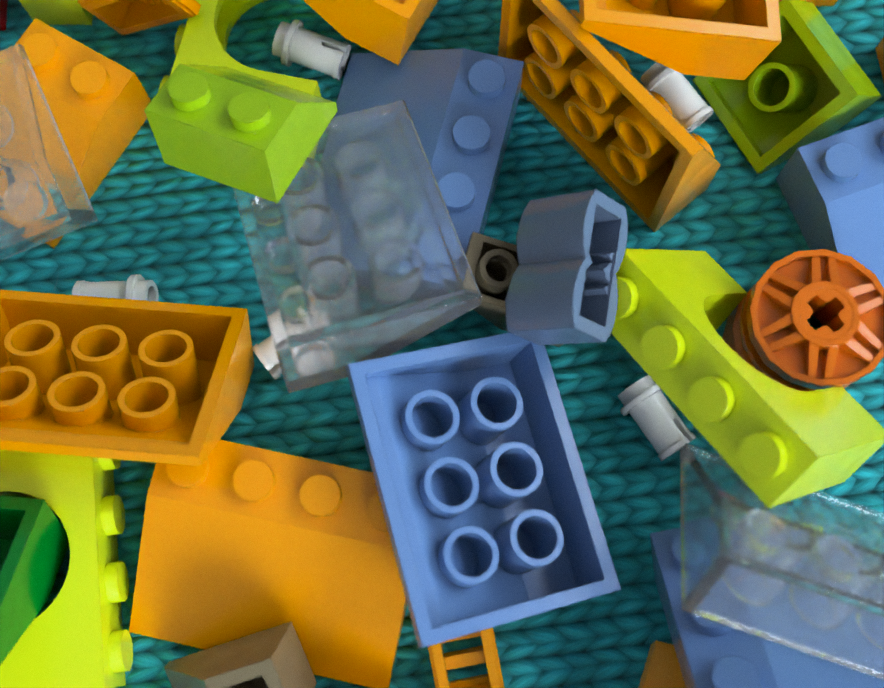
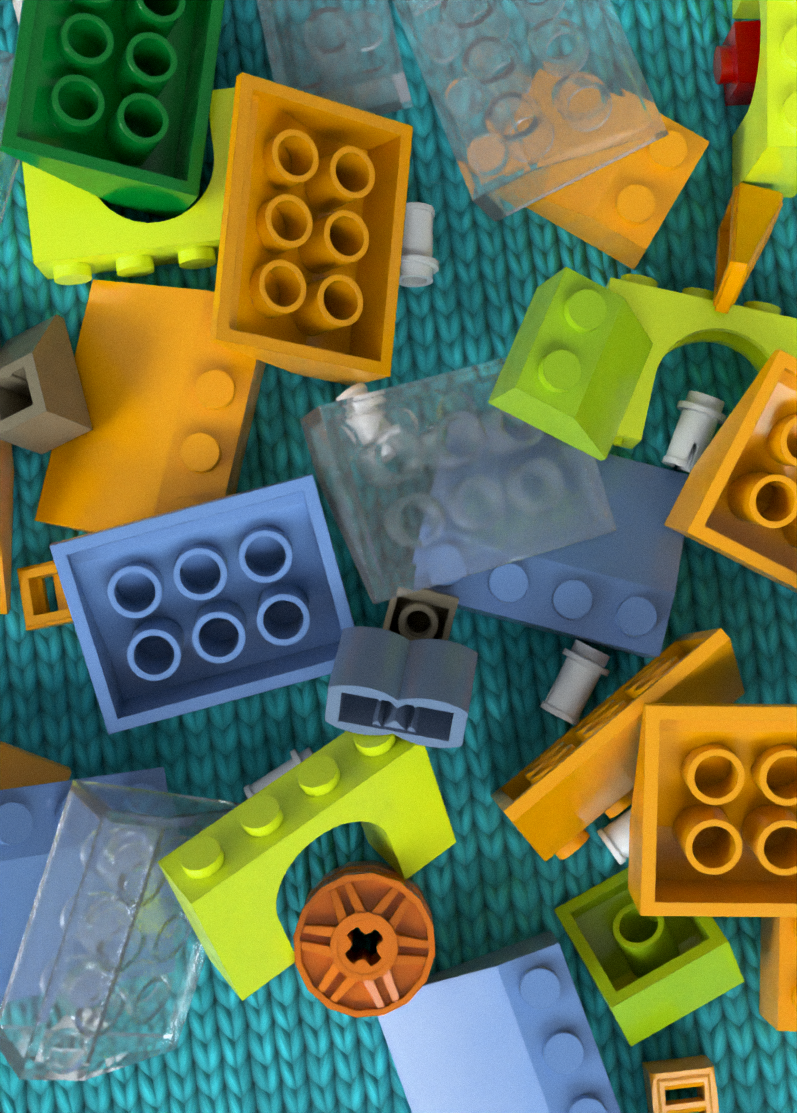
camera: 85 degrees right, 10 degrees up
(544, 150) = (575, 681): none -> white pin

